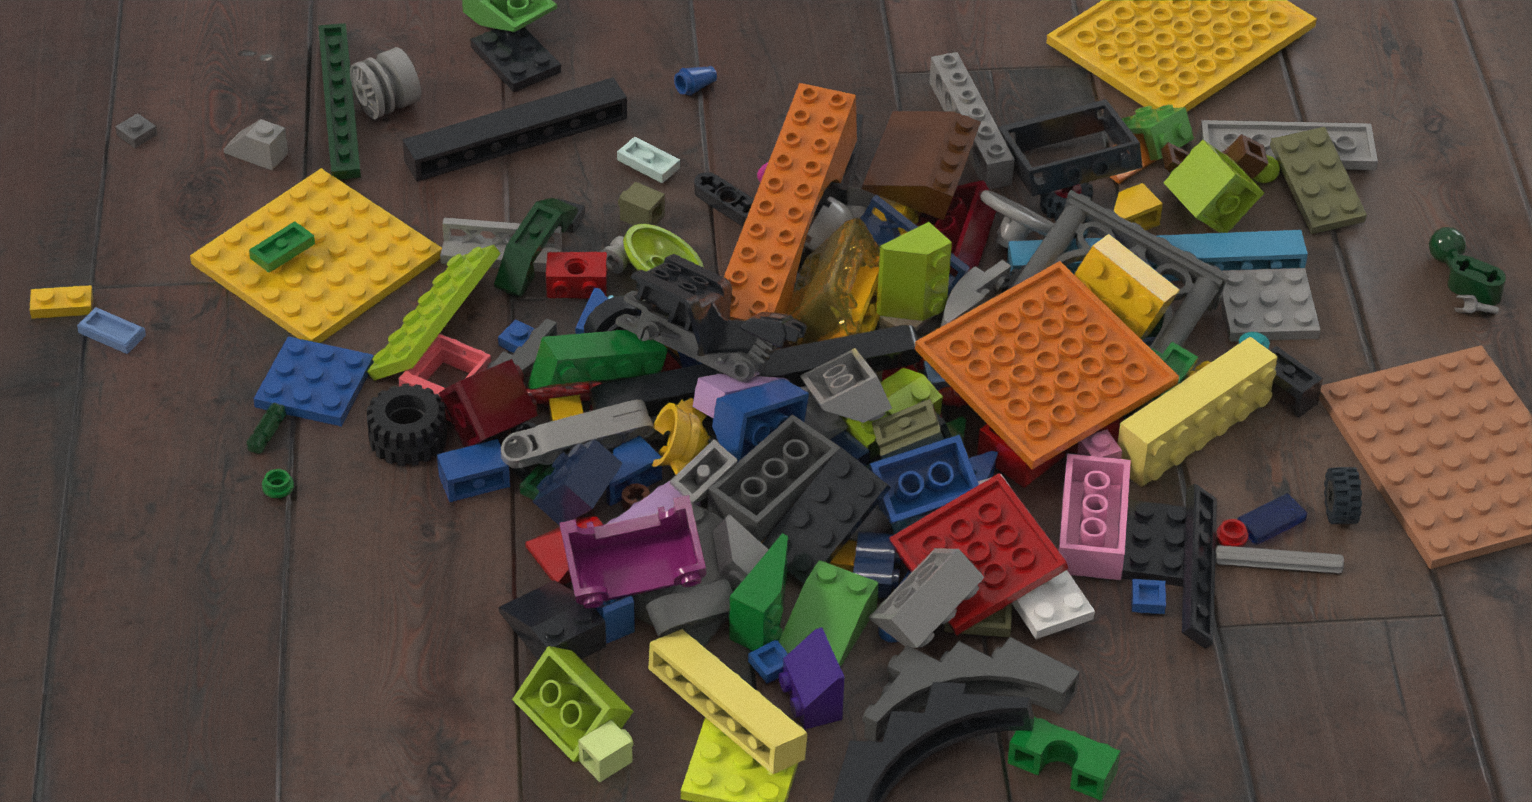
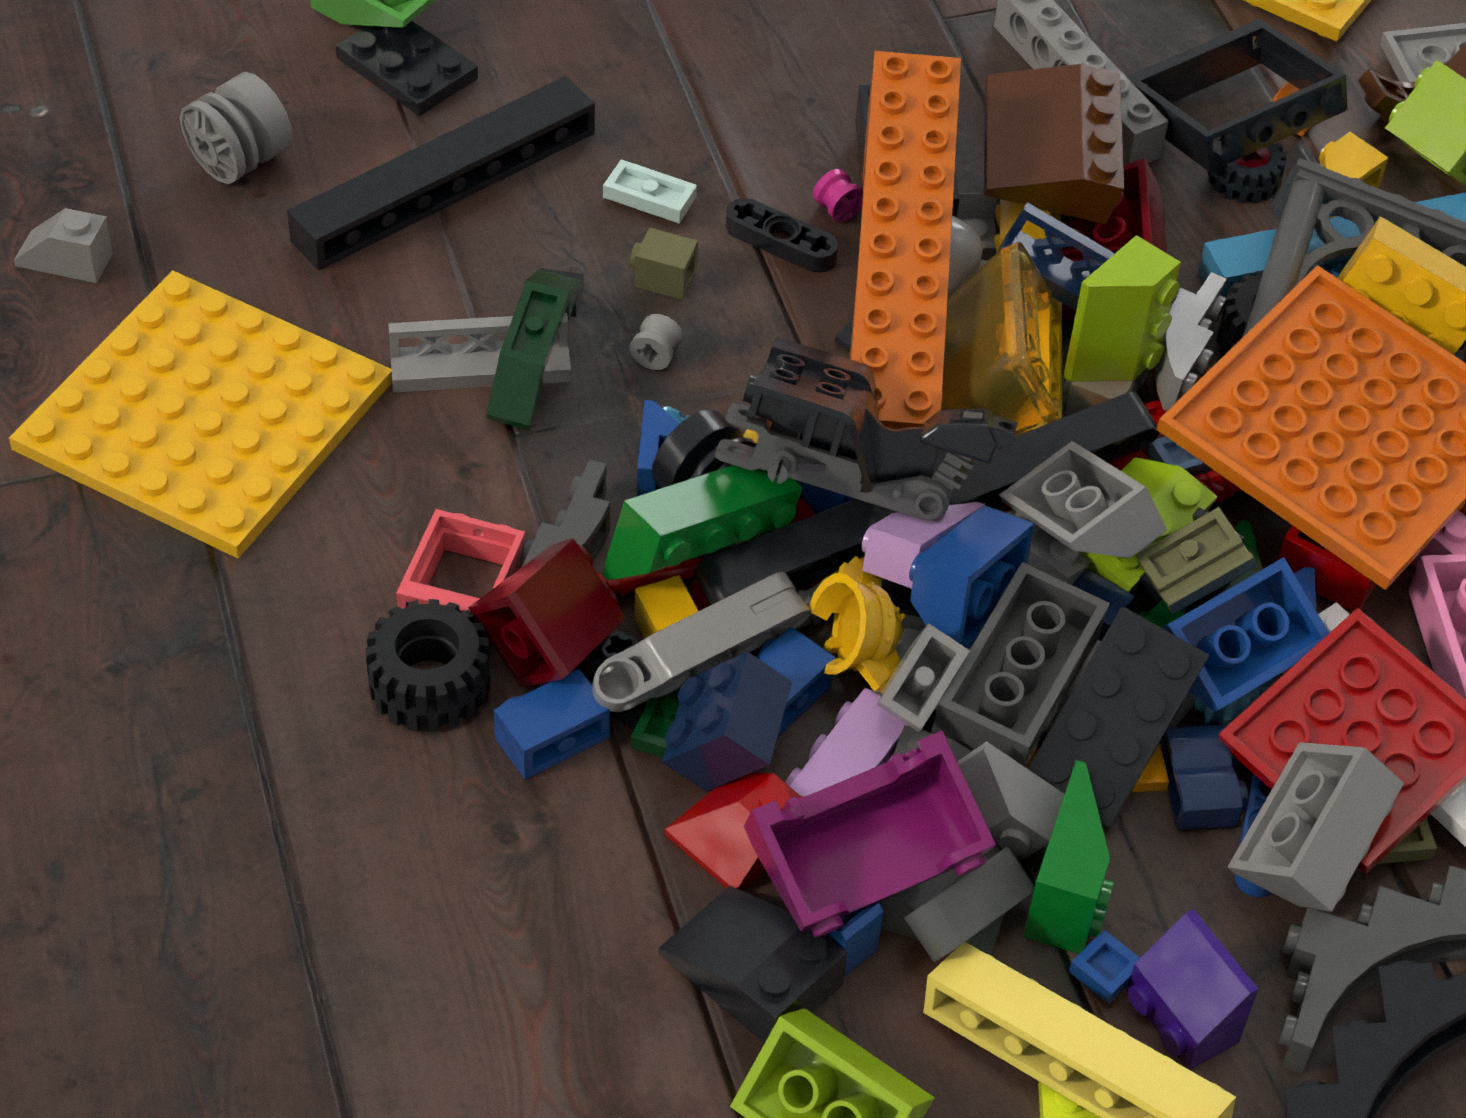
camera: 15 degrees left, 5 degrees up
(266, 428) = (205, 704): dark green axle -> none
(277, 483) = (246, 787): green plate -> none
(282, 246) = (153, 405): green plate -> none
(314, 380) = (257, 613): blue plate -> none
(339, 101) = (171, 166): dark green plate -> none
(433, 312) = (413, 477): lime plate -> none
(514, 335) = (546, 493): blue plate -> none
(575, 274) = (605, 382): red brick -> none
(633, 491) = (807, 714): copper bush -> none
(650, 245) = (721, 334): lime dish -> none
(694, 79) = (672, 64): blue cone -> none
(837, 603) = (1164, 866): bright green slope -> none
(1017, 221) = (1205, 212): light grey piece -> none
(1160, 127) = (1341, 43): bright green bracket -> none

